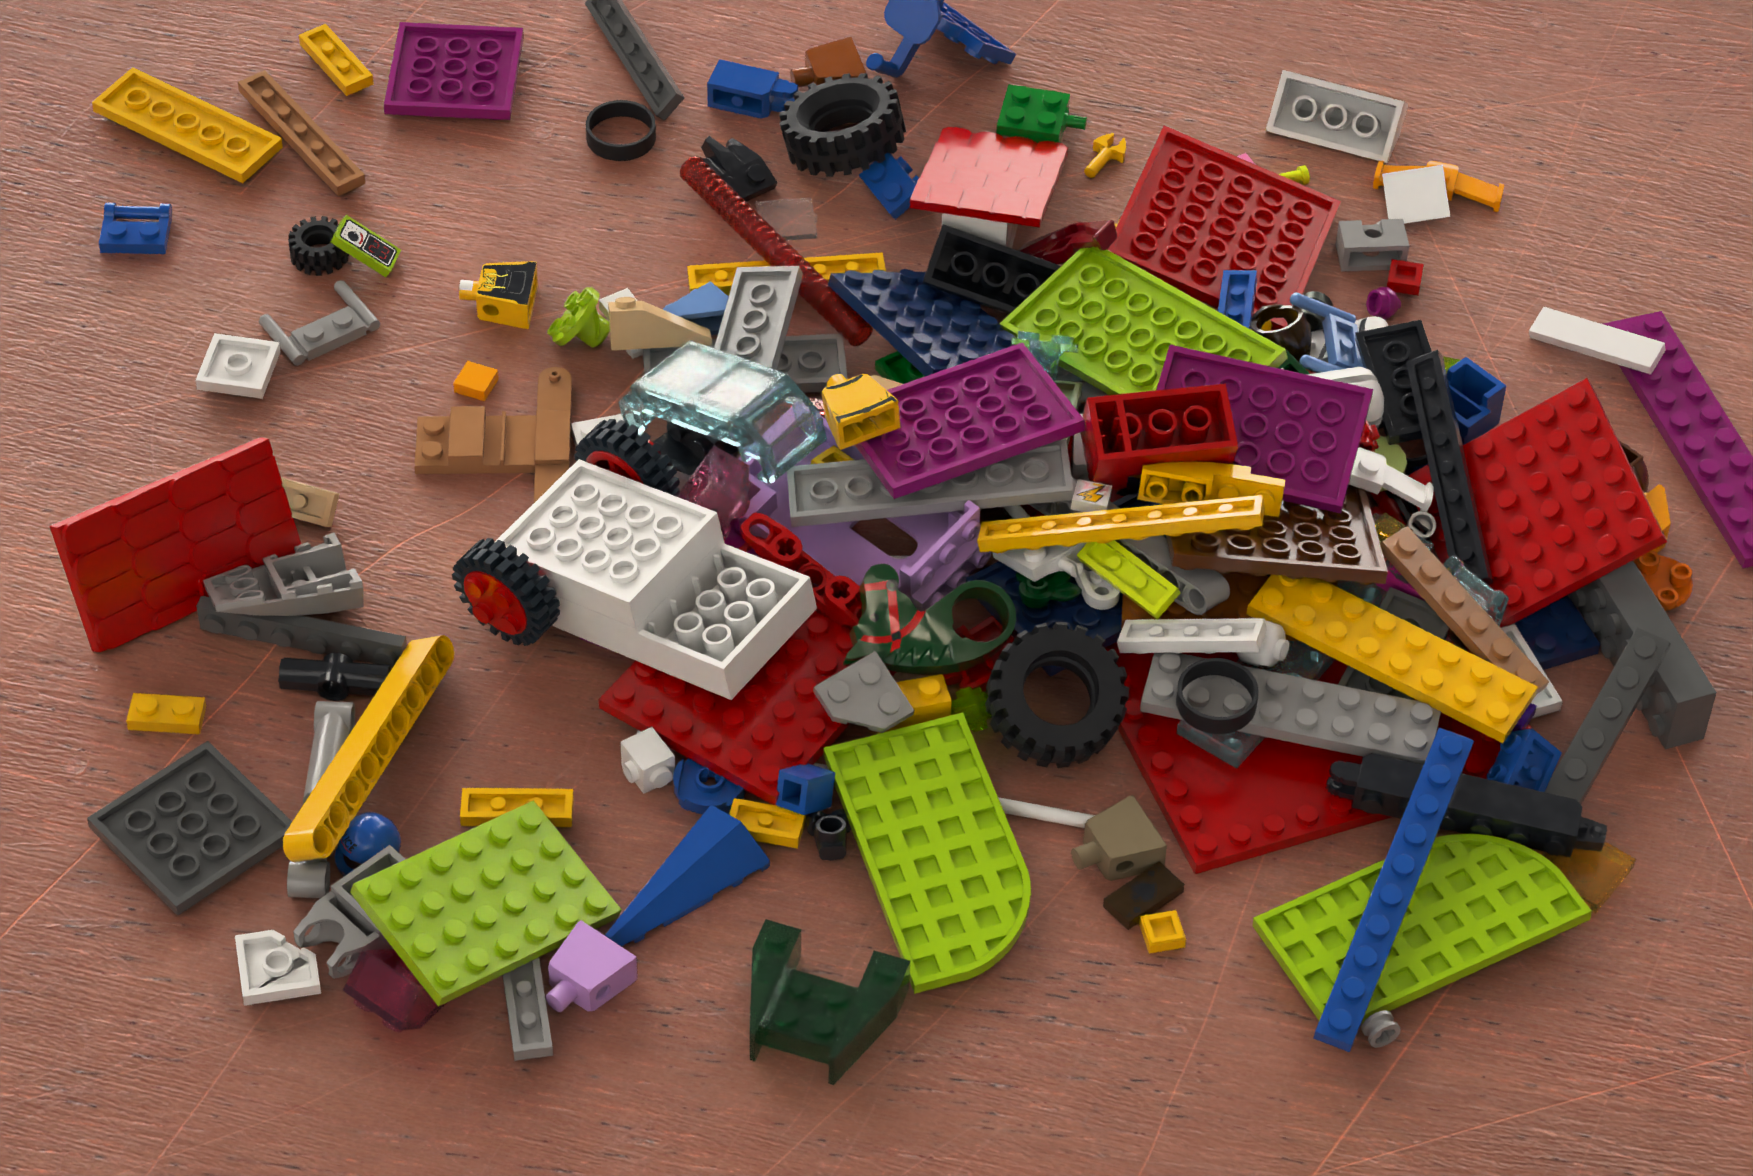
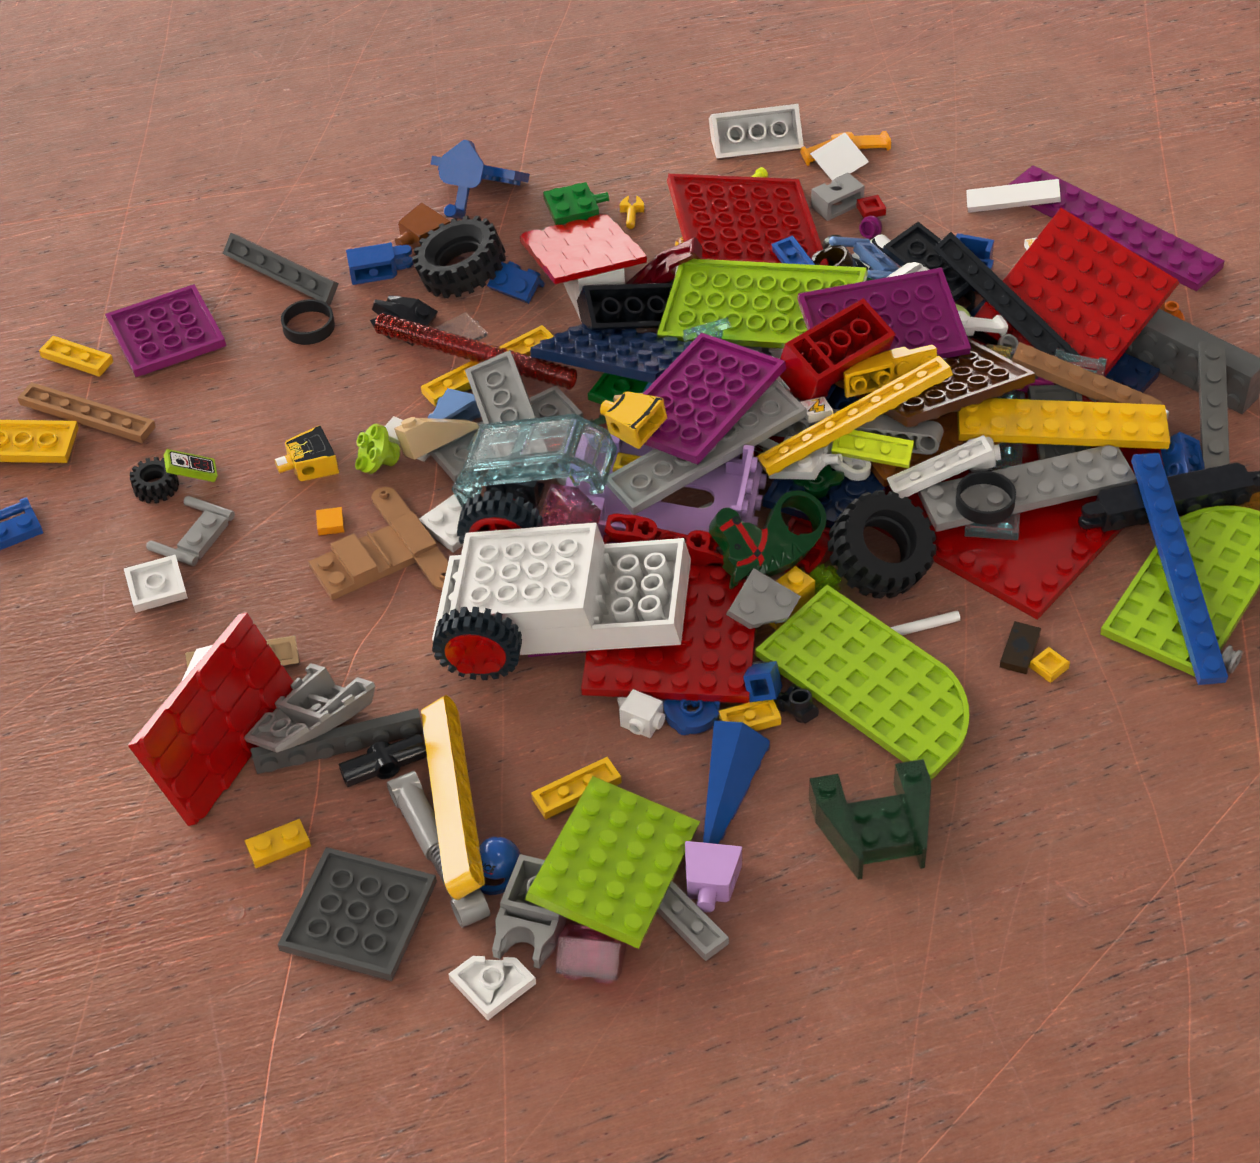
camera: 25 degrees left, 0 degrees up
(1120, 842) = (983, 620): dark tan torso -> none

